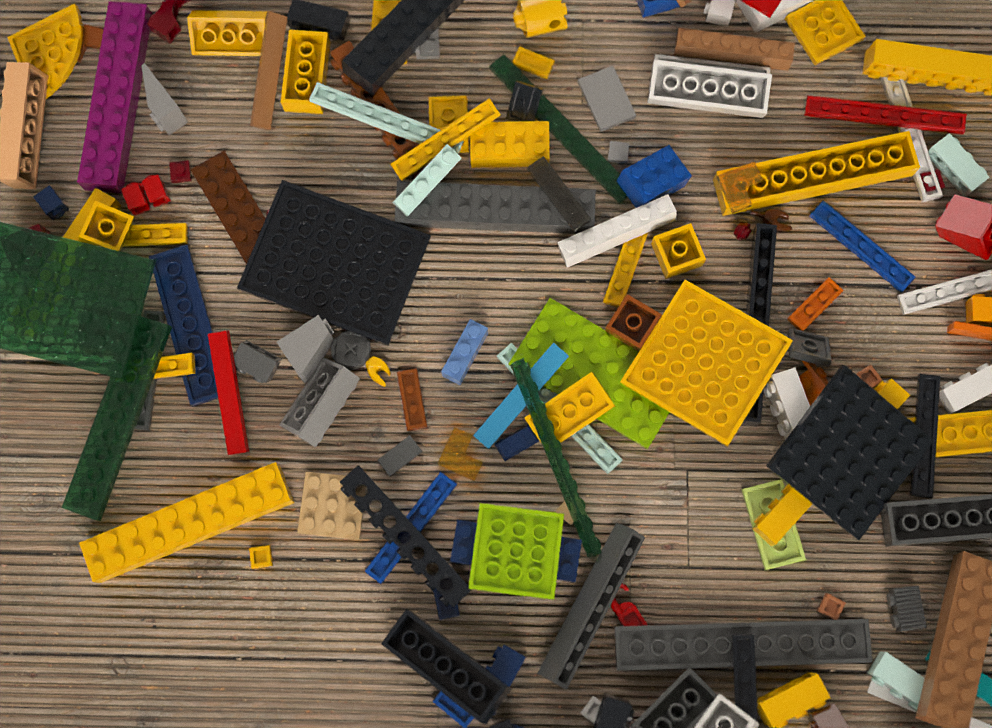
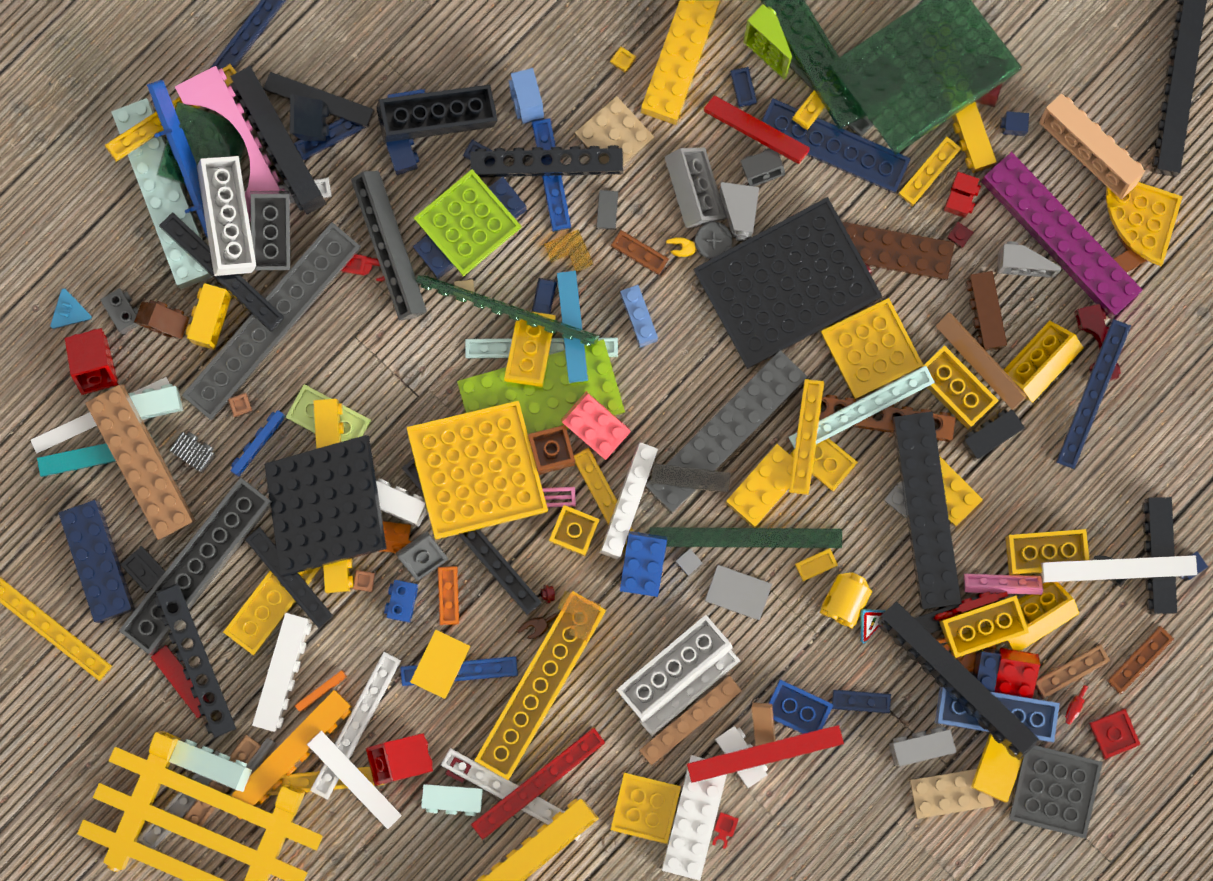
camera: 130 degrees right, 5 degrees up
(106, 227) = (952, 141): yellow brick -> none
(141, 439) = (767, 40): none -> lime slope
(200, 438) = (743, 87): none -> dark blue tile
(224, 101) = (986, 310): none -> reddish brown brick
(331, 158) = (871, 348): none -> yellow plate
(363, 602) = (526, 96): none -> medium blue brick
(427, 180) = (786, 395): light aqua plate -> none
(524, 102) = (786, 524): black plate -> none
(583, 305) = (596, 425): none -> coral brick
(654, 293) = (560, 497): none -> bright pink tile
(839, 563) = (262, 436): none -> blue plate
(855, 333) = (402, 601): none -> blue brick
(873, 261) = (440, 664): none -> yellow tile

